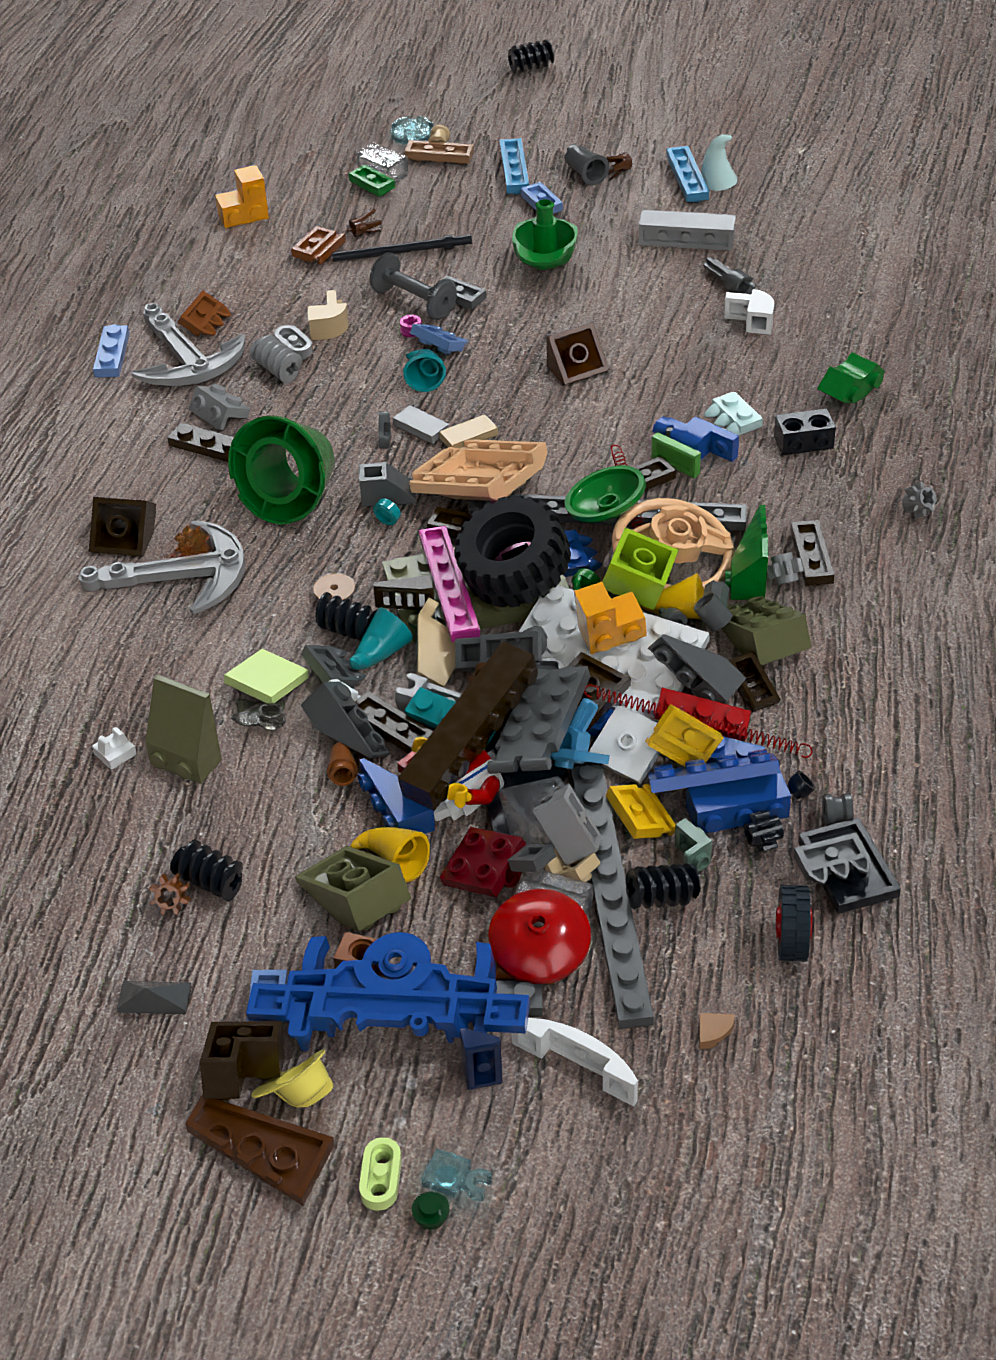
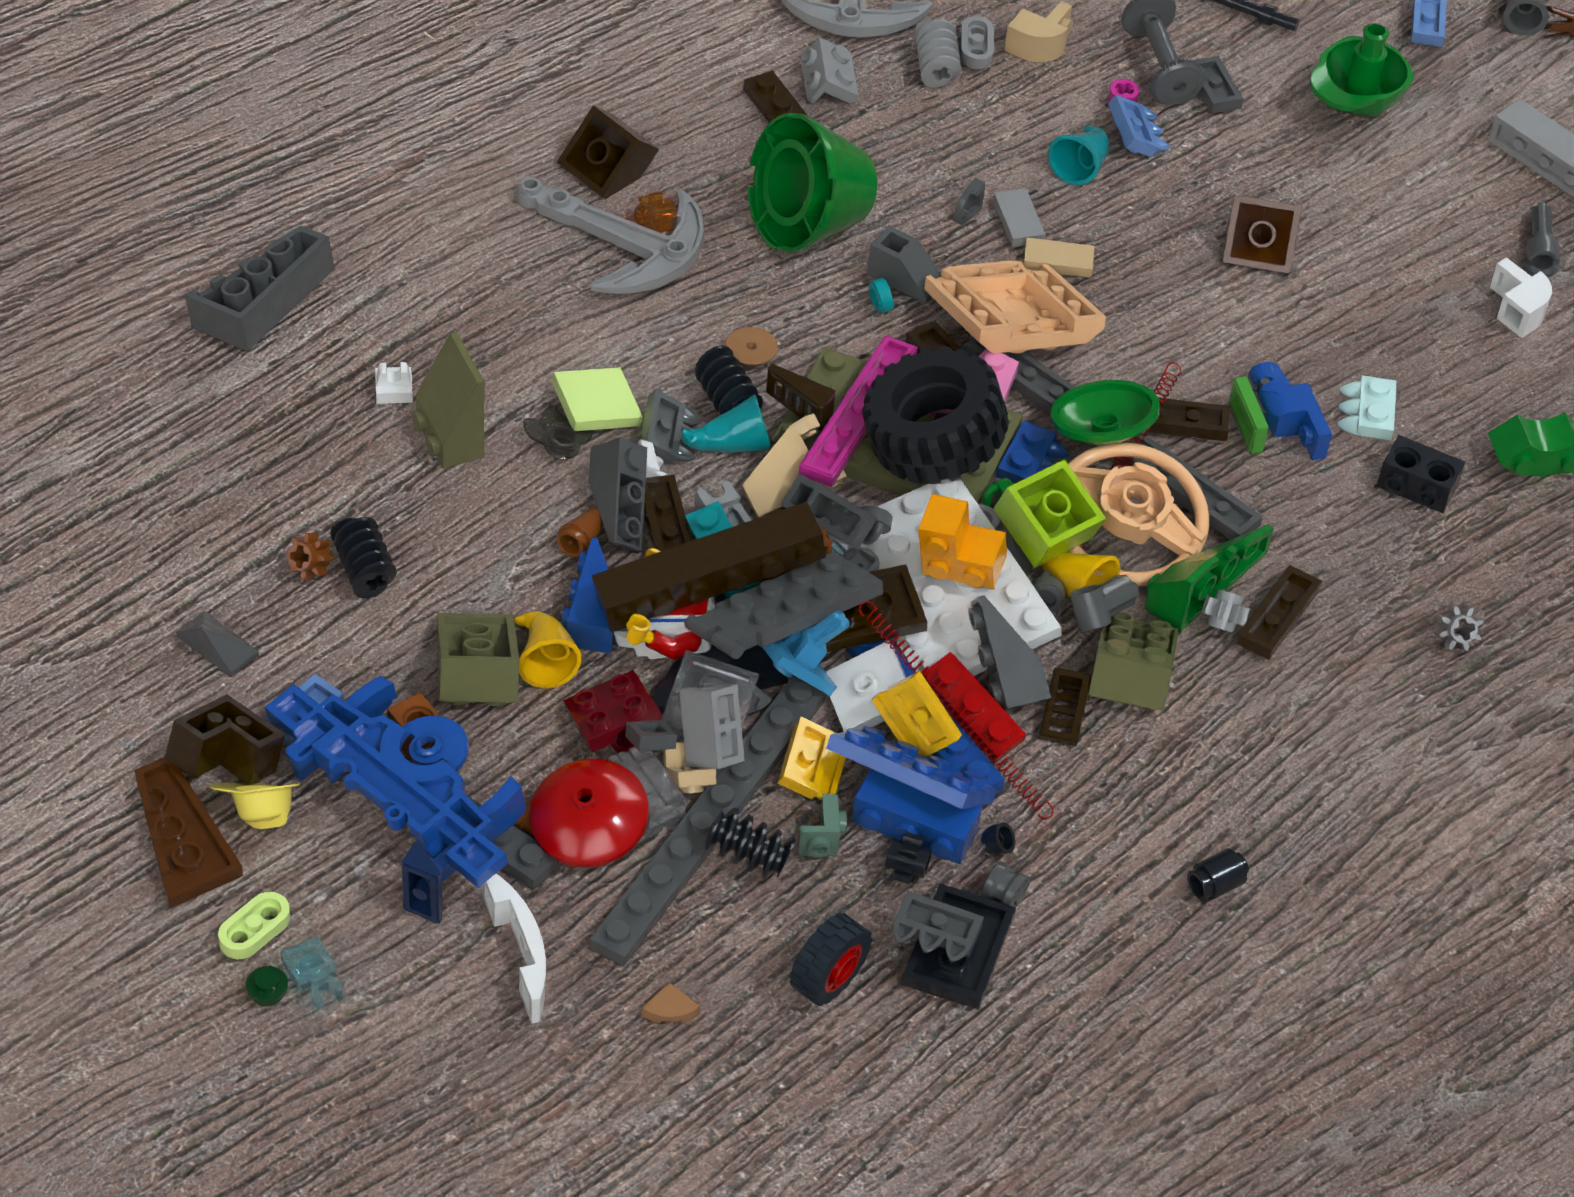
camera: 30 degrees right, 5 degrees up
(946, 721) = (1218, 874): none -> black brick

